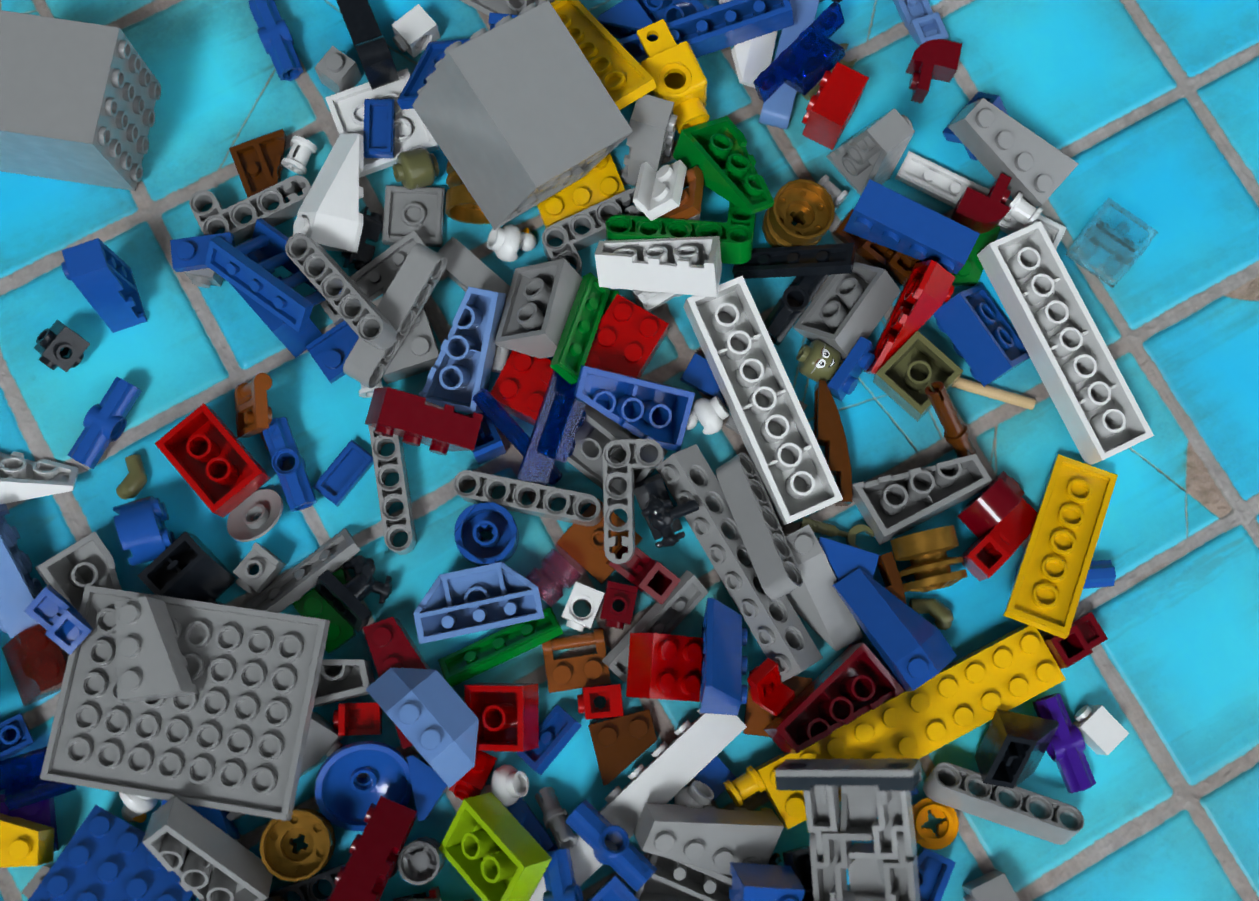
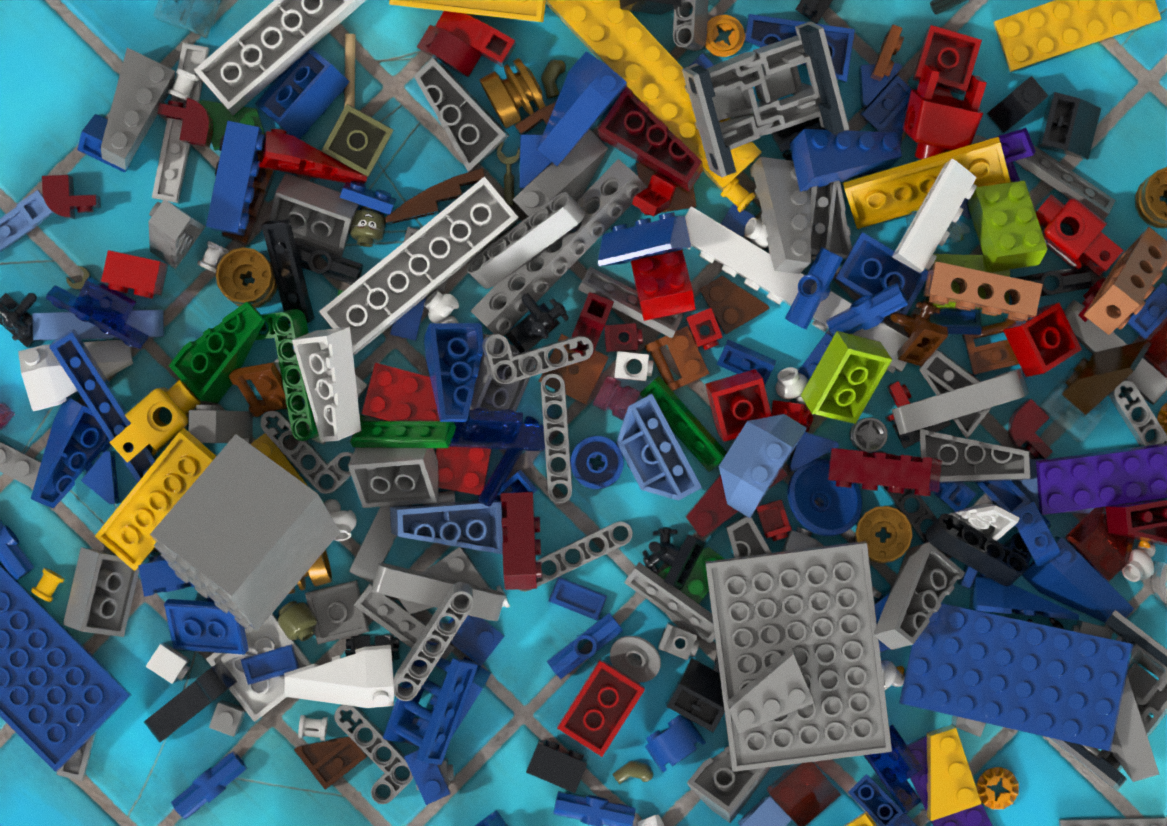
camera: 100 degrees left, 10 degrees up
(60, 619) = (765, 780): blue slope -> none
(167, 396) = (557, 765): none -> black brick
(254, 414) = (555, 687): dark orange plate -> none
(555, 818) = (806, 338): light grey pin -> none
(660, 190) = (260, 403): white bracket -> none
(955, 431) = (397, 96): reddish brown pin -> none

